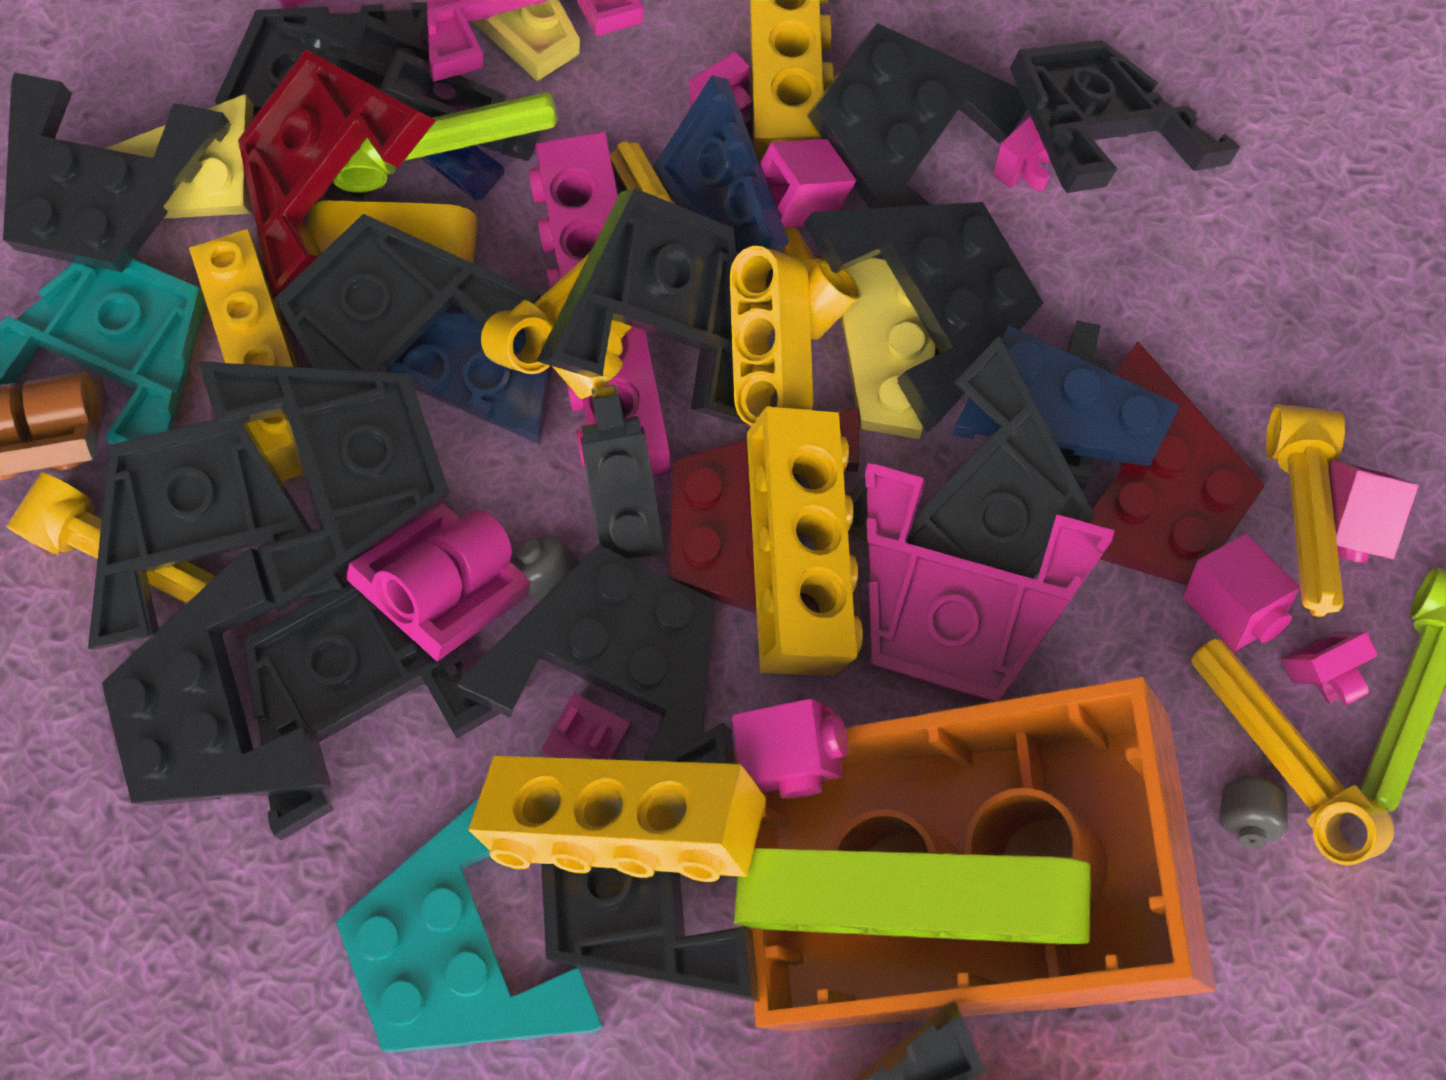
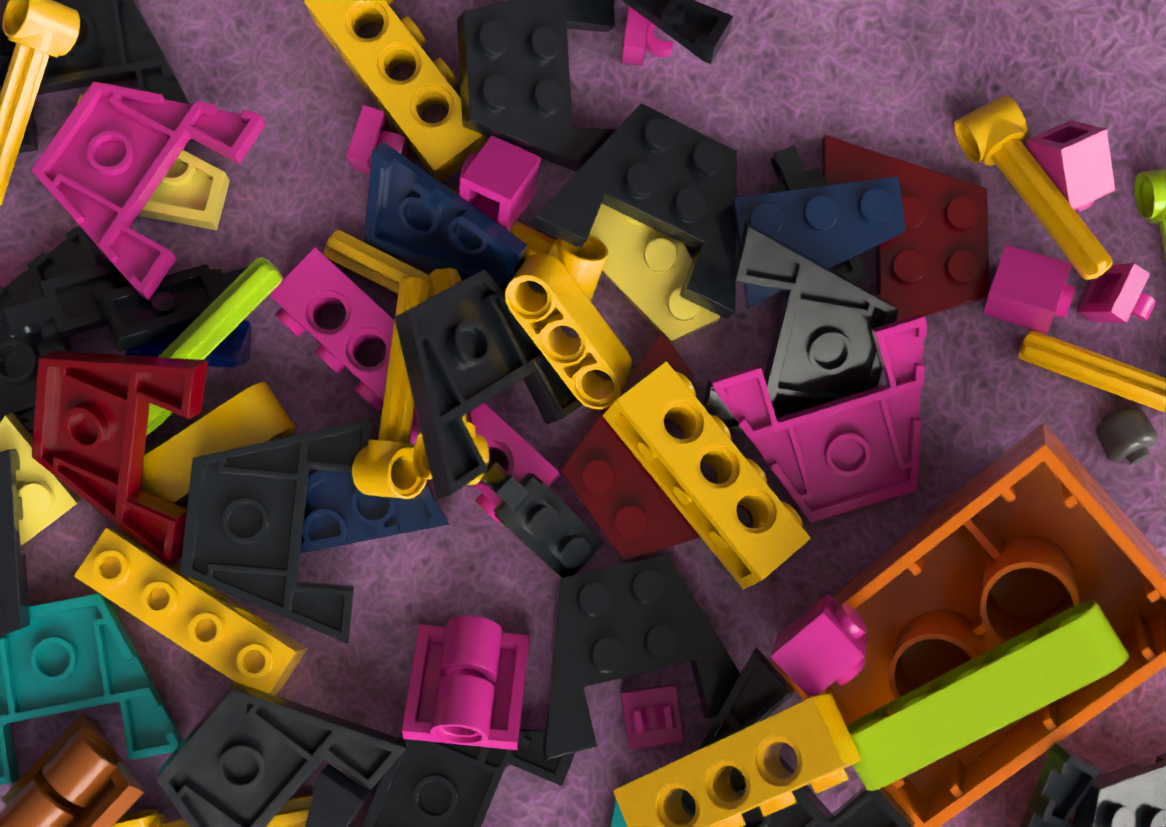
camera: 40 degrees left, 15 degrees up
(358, 451) = (342, 645): black wing -> none
(545, 564) = (527, 612): dark grey piece -> none

